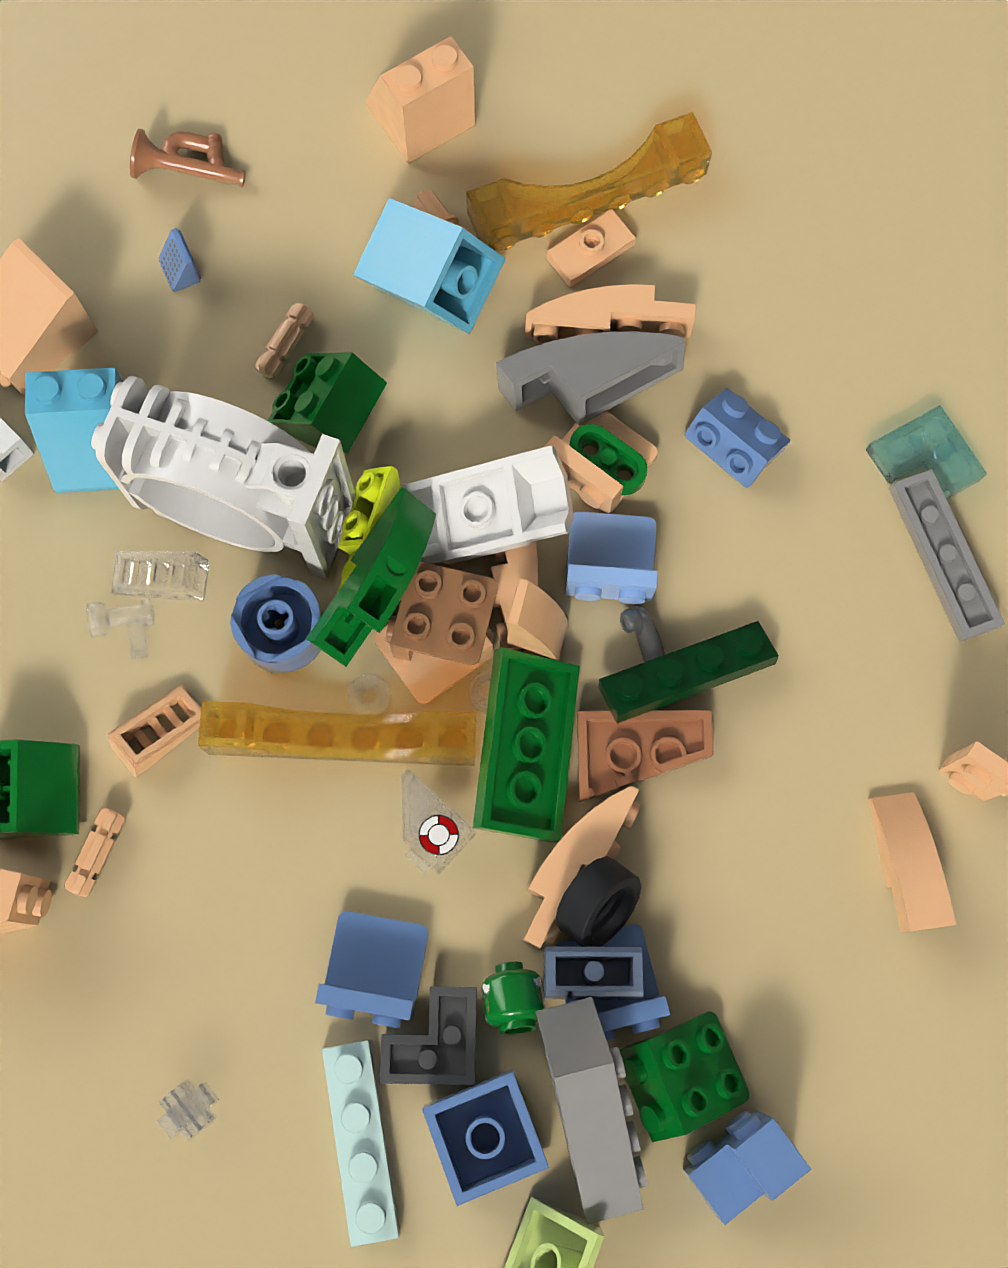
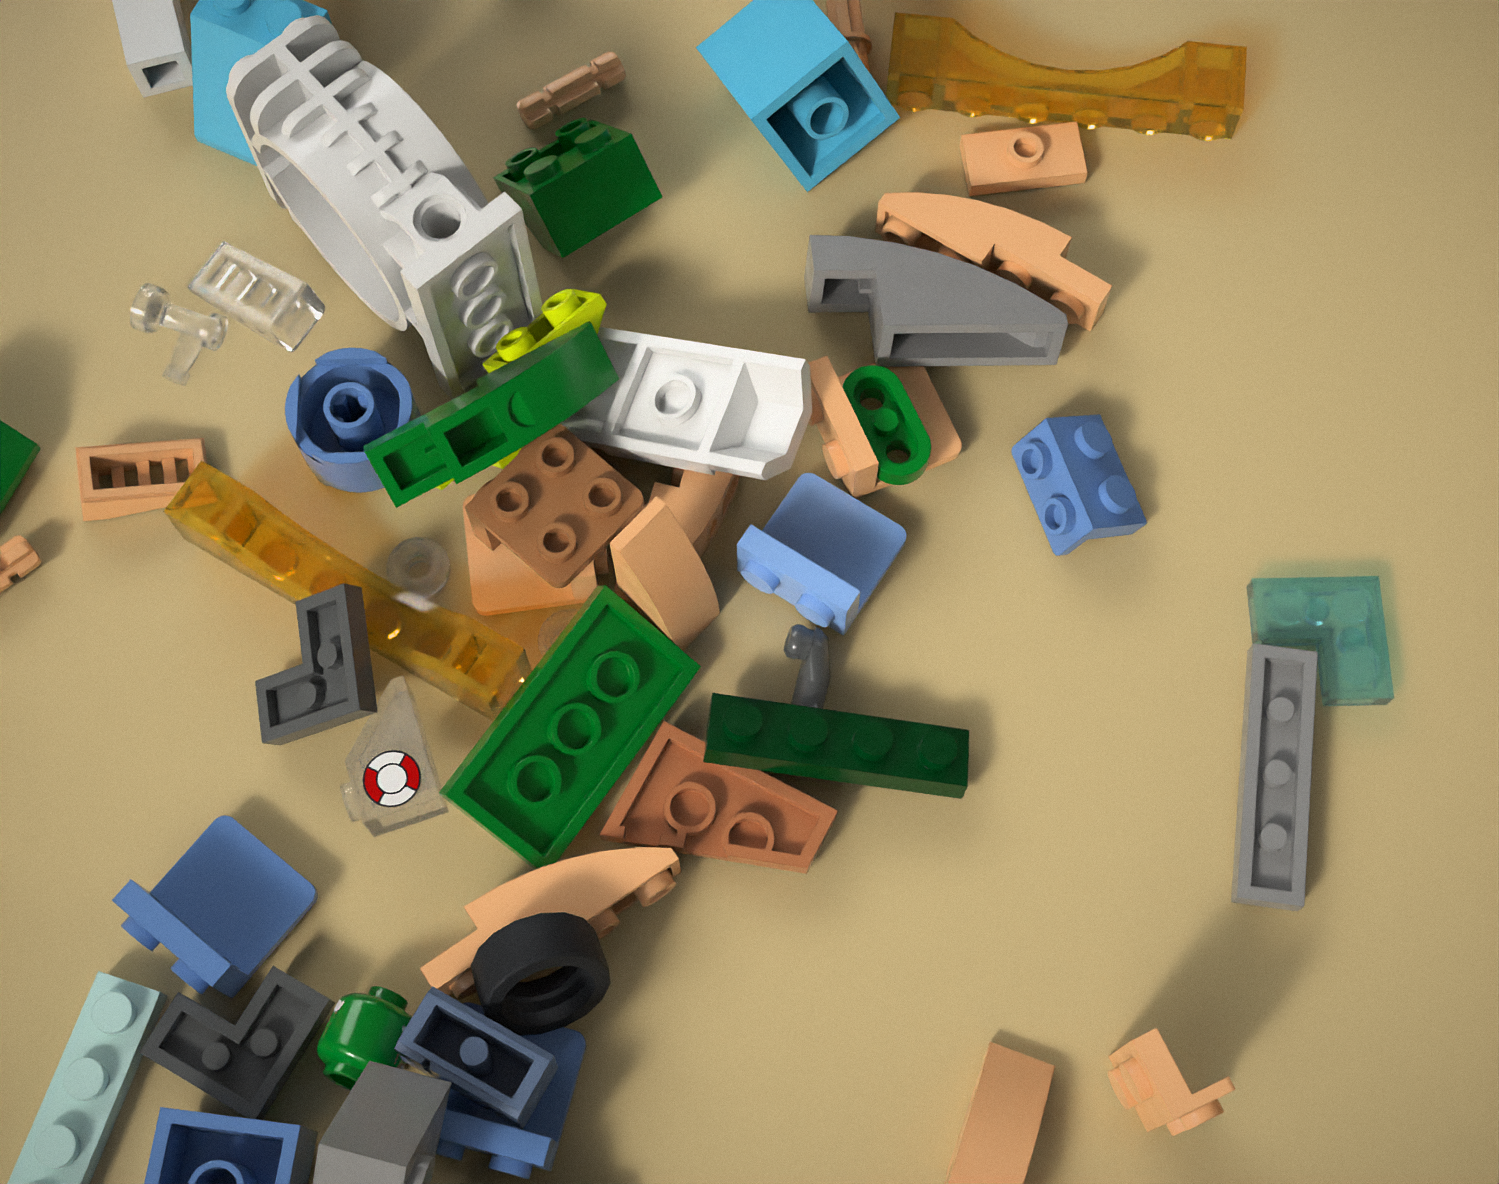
camera: 30 degrees right, 5 degrees down
(364, 791) = (335, 674): none -> dark grey plate

